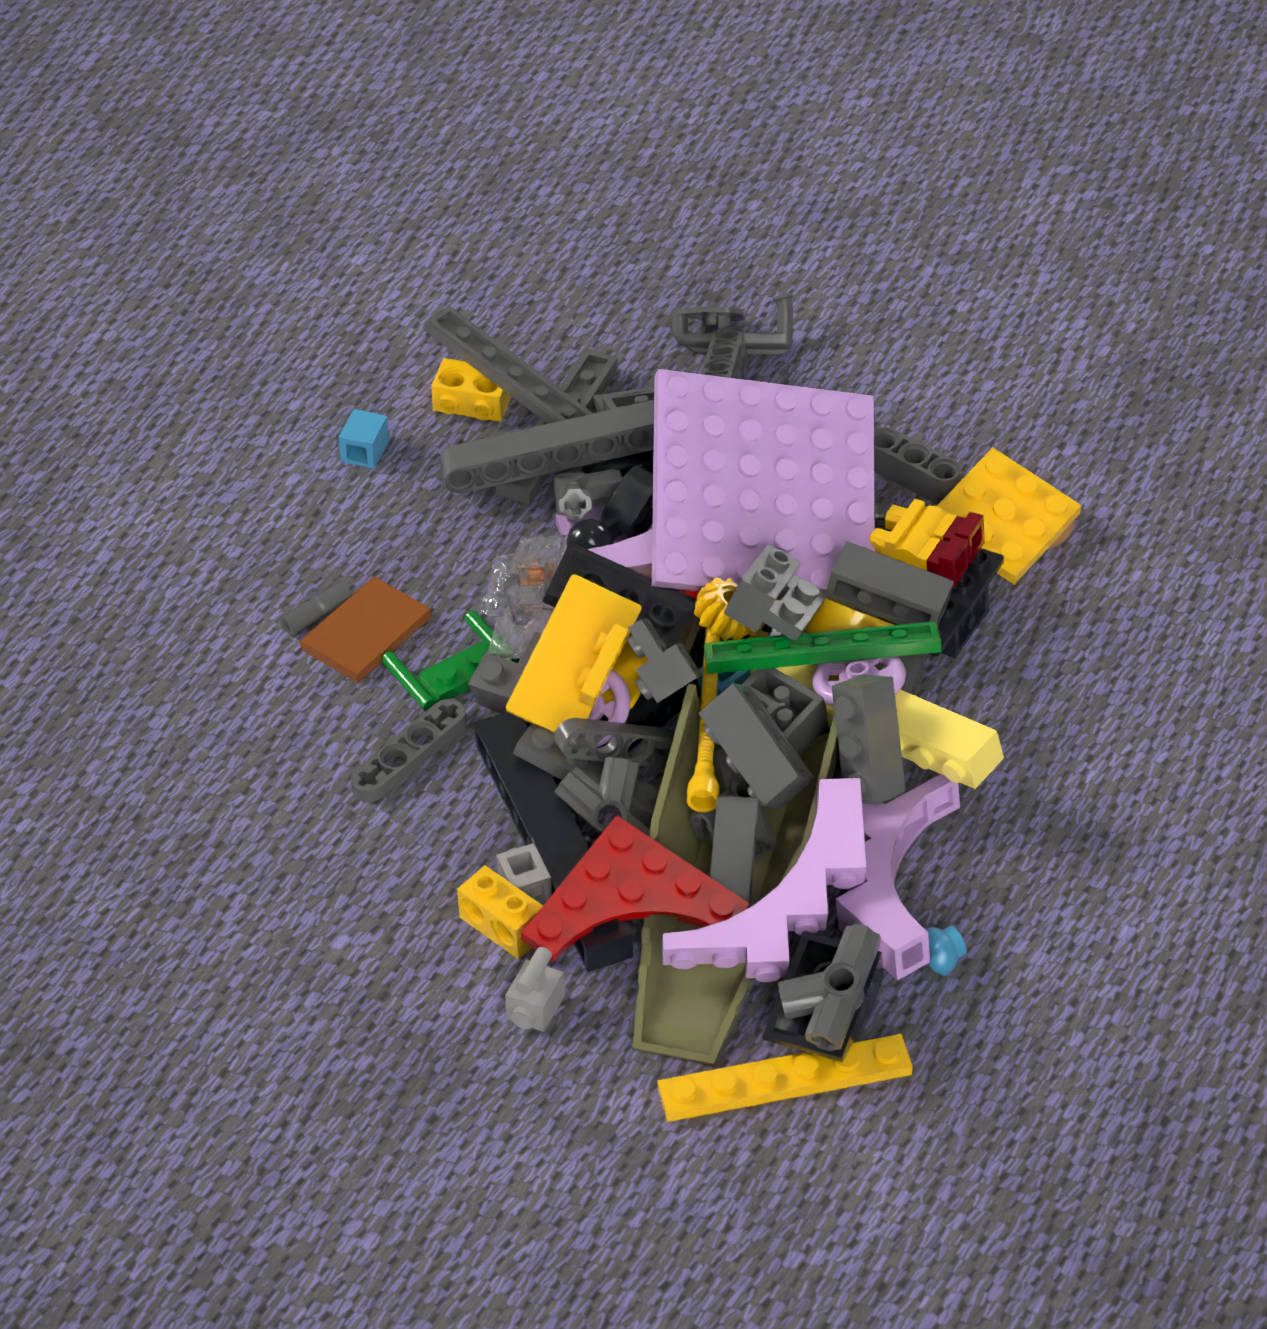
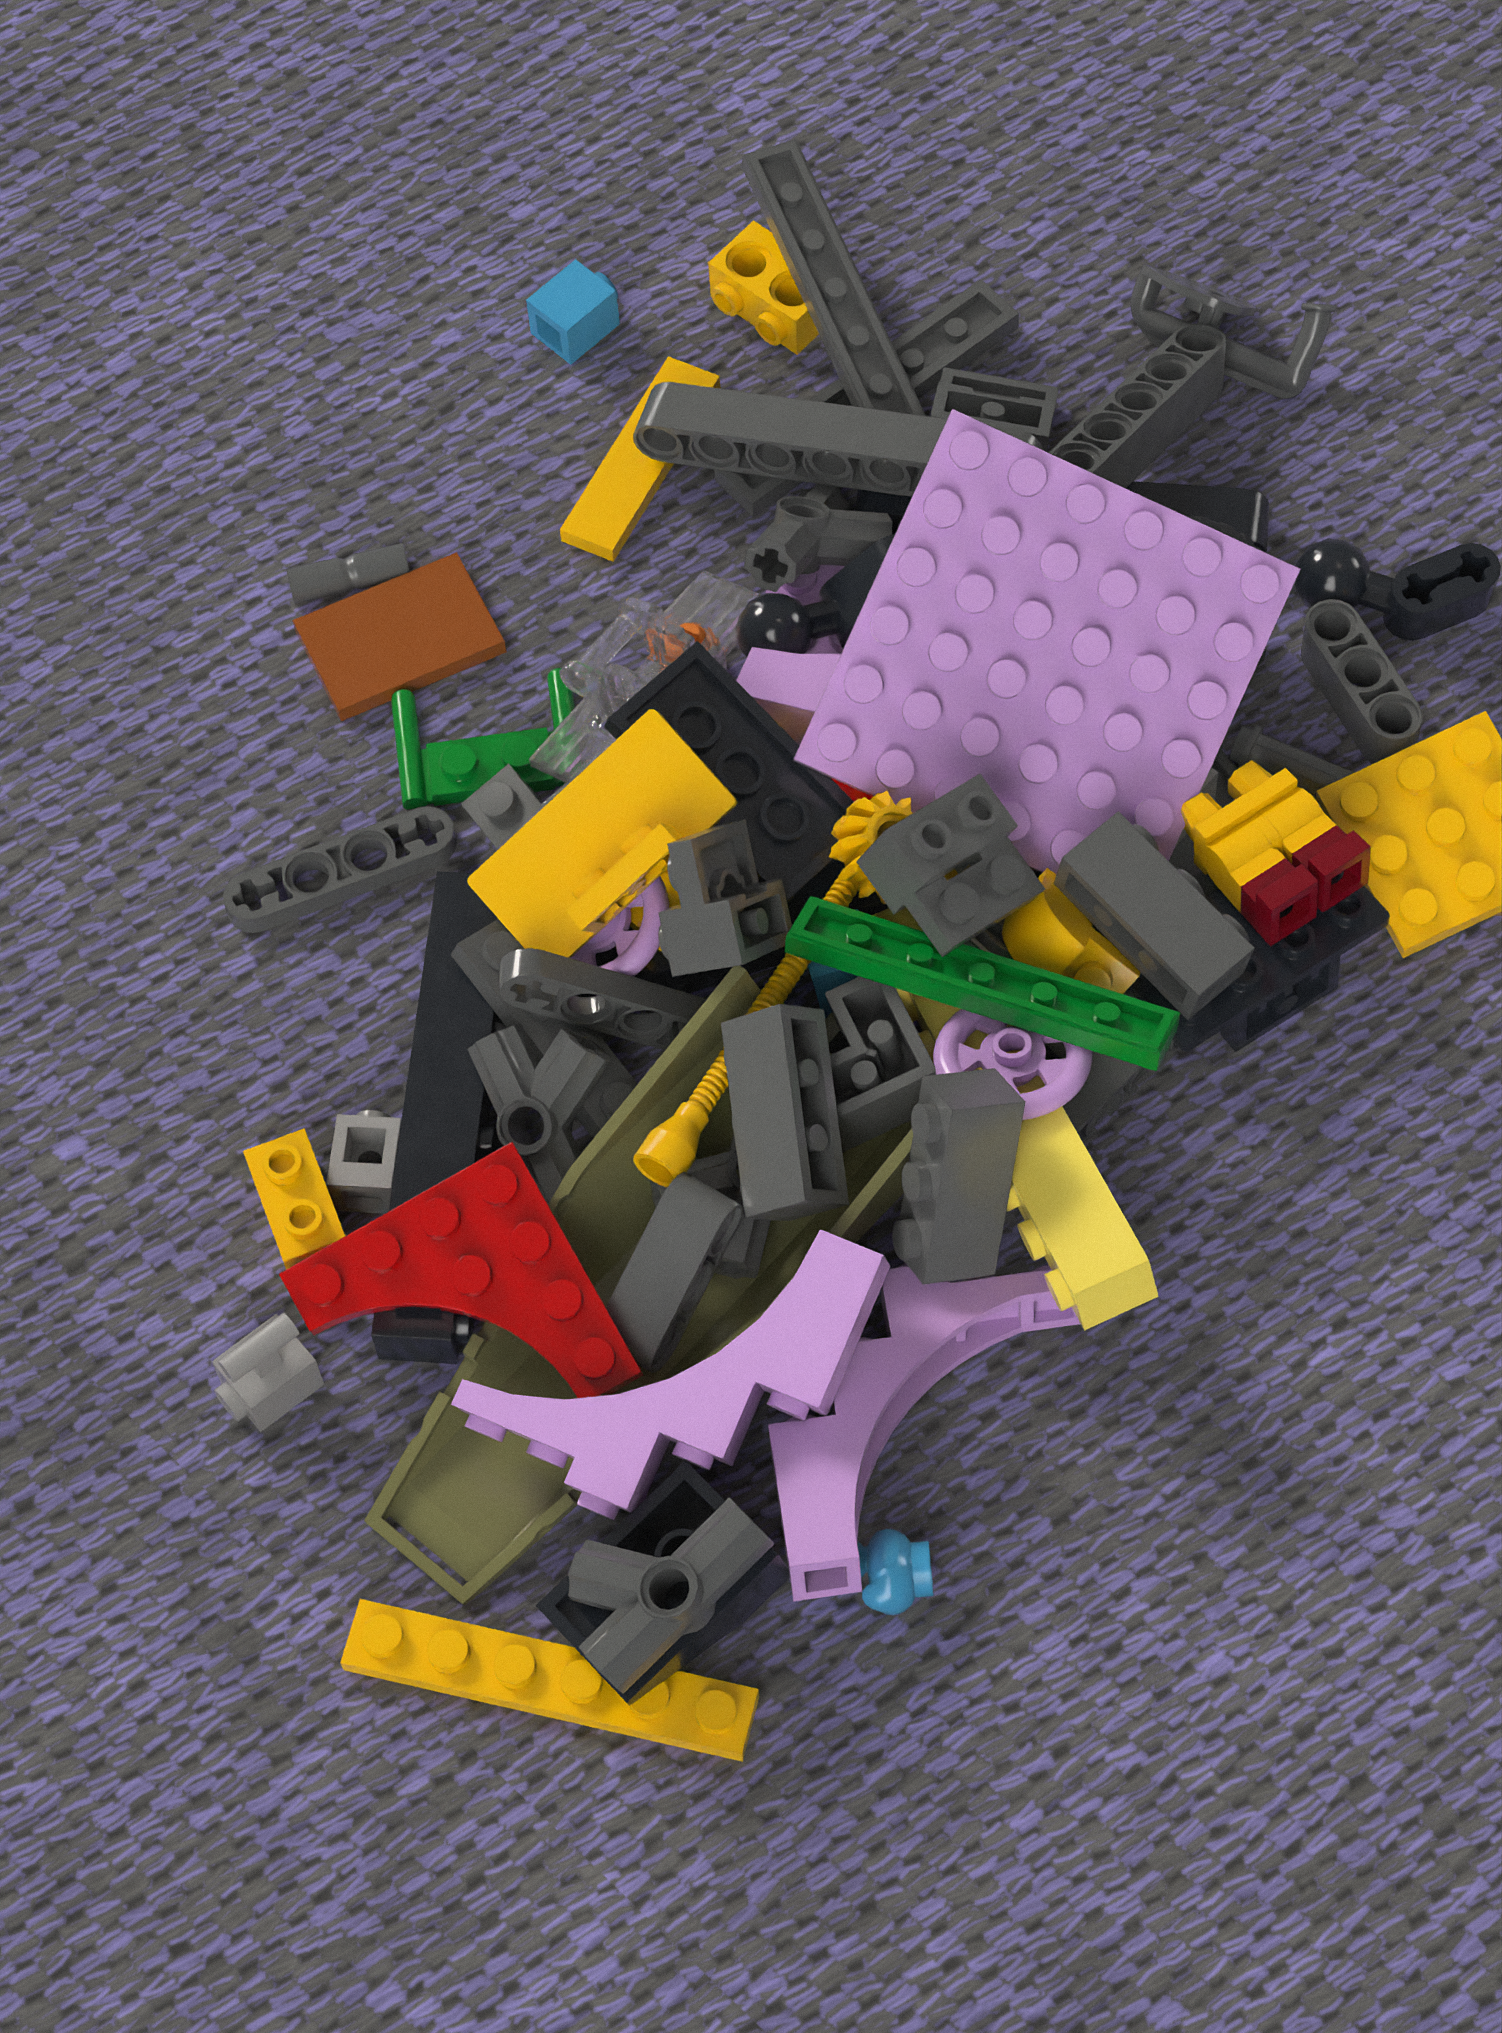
camera: 30 degrees right, 15 degrees up
(445, 510) = (625, 478): none -> yellow tile
(922, 412) = (1415, 602): none -> black beam

